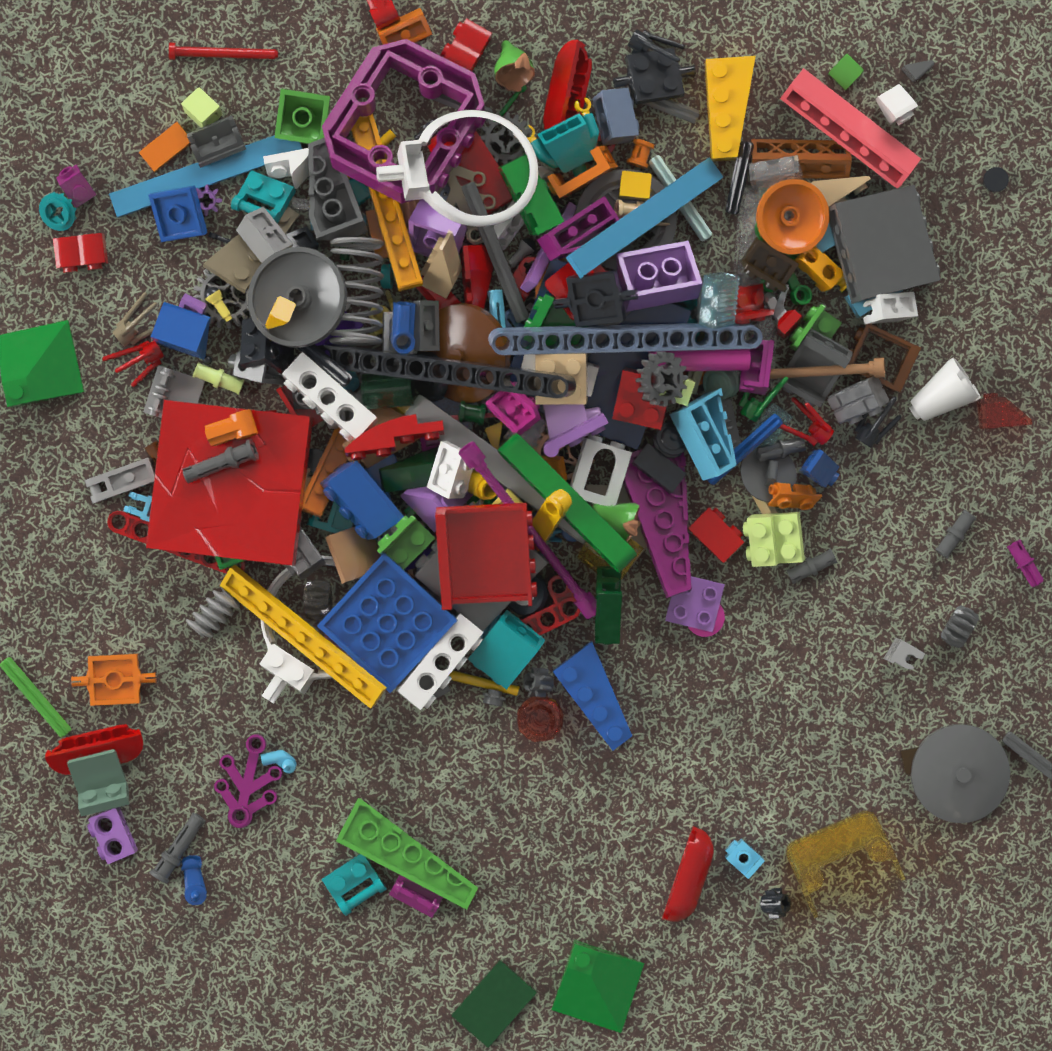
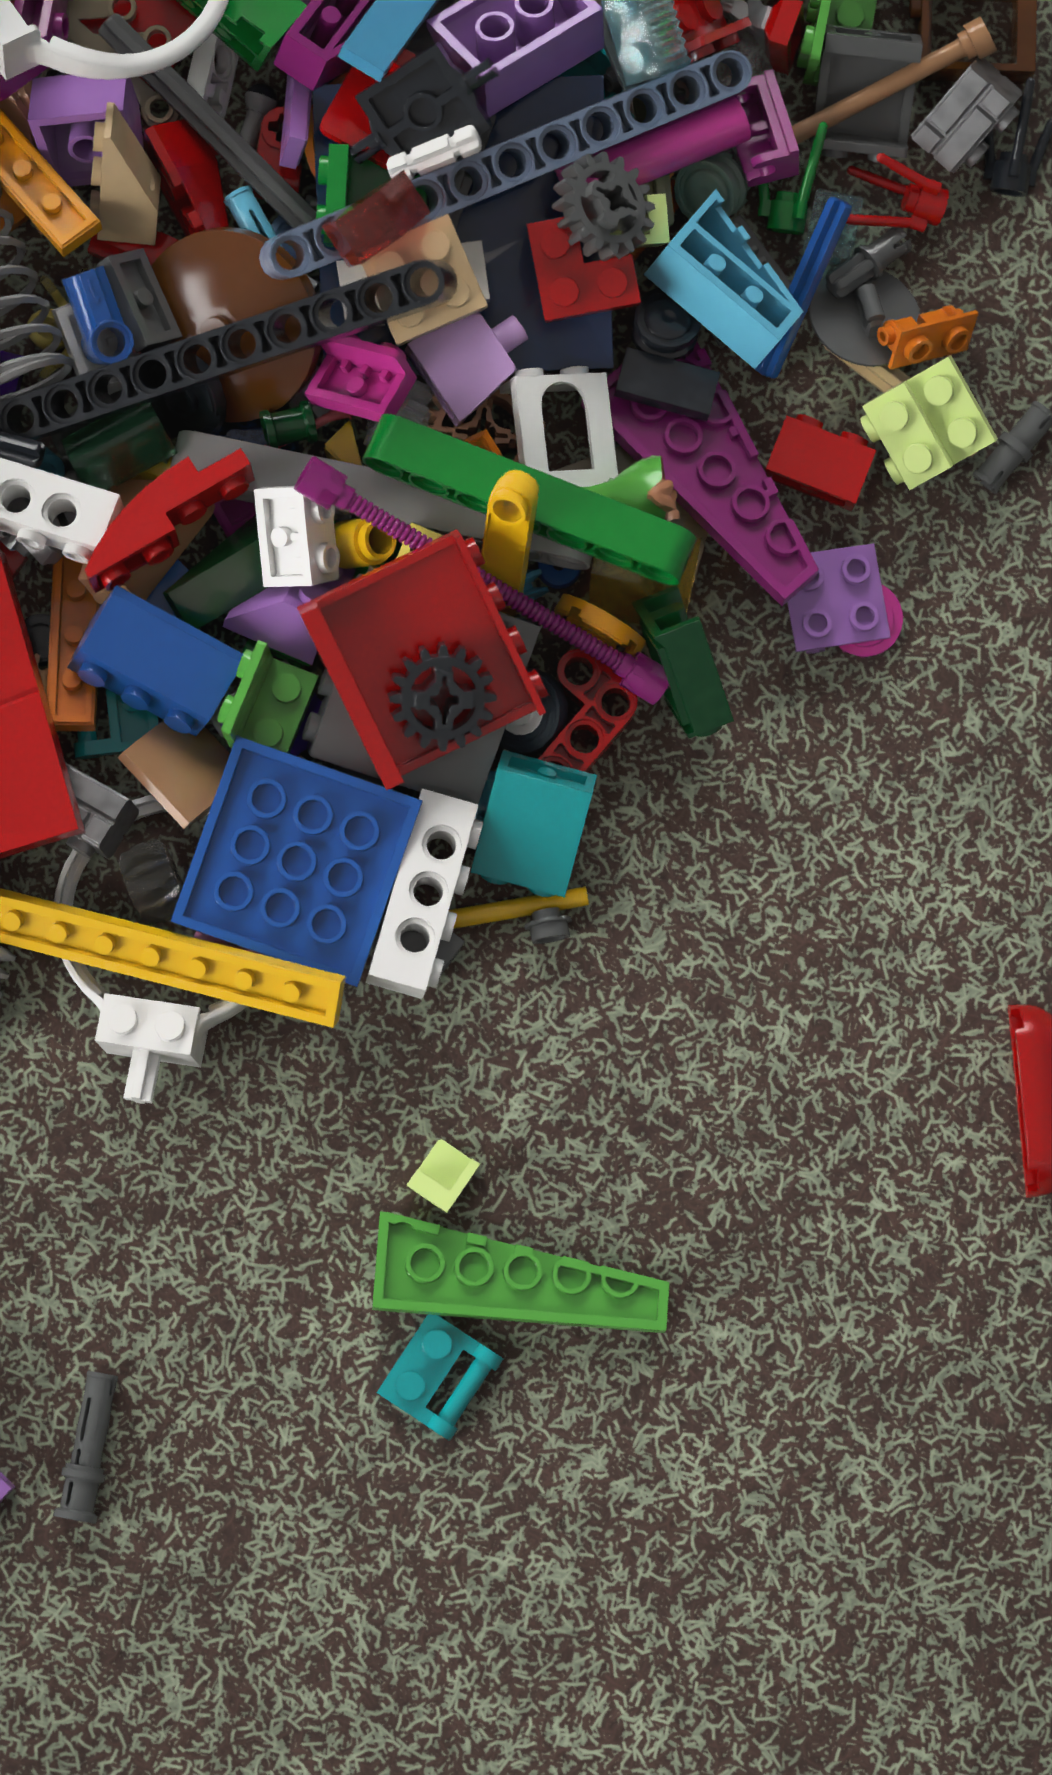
camera: 30 degrees left, 5 degrees down
(194, 884) = (145, 1502): blue piece -> none
(246, 785) = (165, 1278): magenta plant -> none
(281, 758) = (209, 1203): medium azure arm -> none
(388, 280) = (34, 256): teal tile -> none
(394, 793) = (443, 1175): none -> yellowish green panel
(416, 896) = (562, 1348): magenta hinge -> none
(477, 573) = (464, 697): none -> black gear
(494, 1003) = (790, 1484): dark green tile -> none
(536, 722) = (646, 939): clear red hat -> none
(538, 682) = (617, 861): dark grey gear -> none
(550, 345) = (376, 220): none -> clear red slope
(574, 435) = (490, 377): medium lavender plate -> none
(577, 570) = (600, 624): none -> light orange tile
(591, 322) = (436, 153): none -> white axle
(591, 690) = (724, 837): blue wedge -> none
(597, 986) = (965, 1371): green slope -> none
(820, 468) = (953, 262): blue slope -> none

